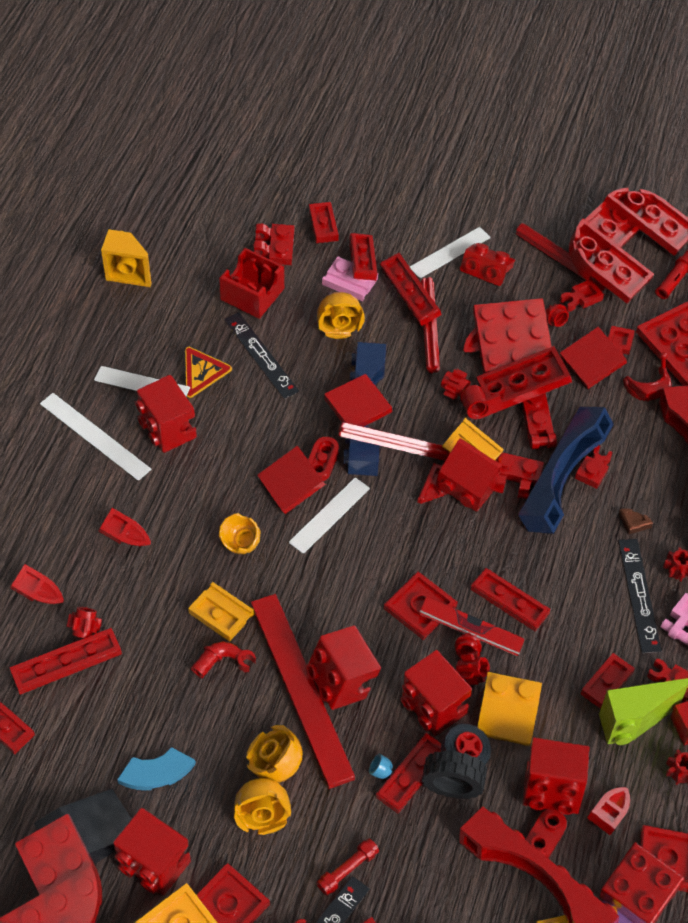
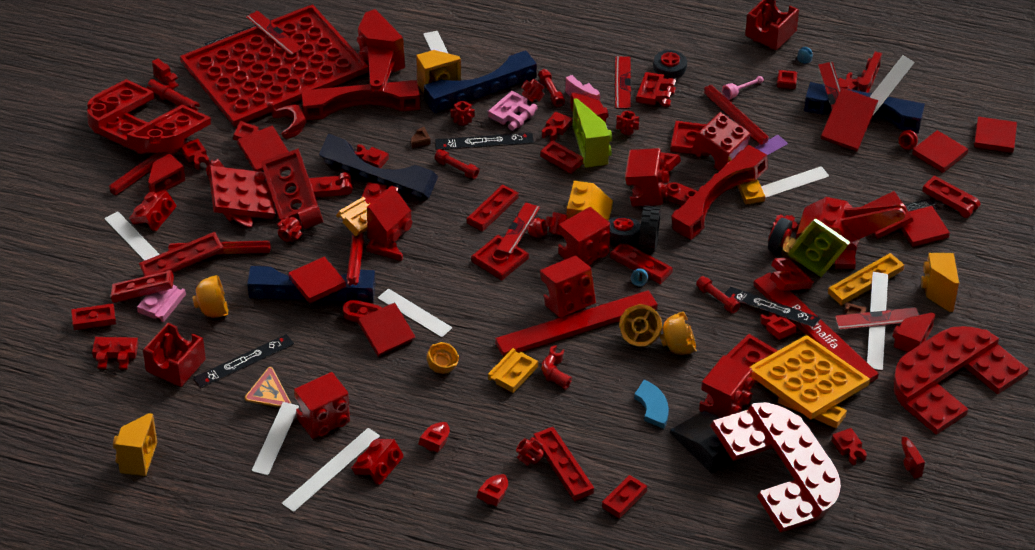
camera: 90 degrees left, 10 degrees down
(94, 474) = (378, 459): none -> red bracket
(541, 268) = (166, 174): none -> red slope
(575, 572) = (443, 157): none -> red bar

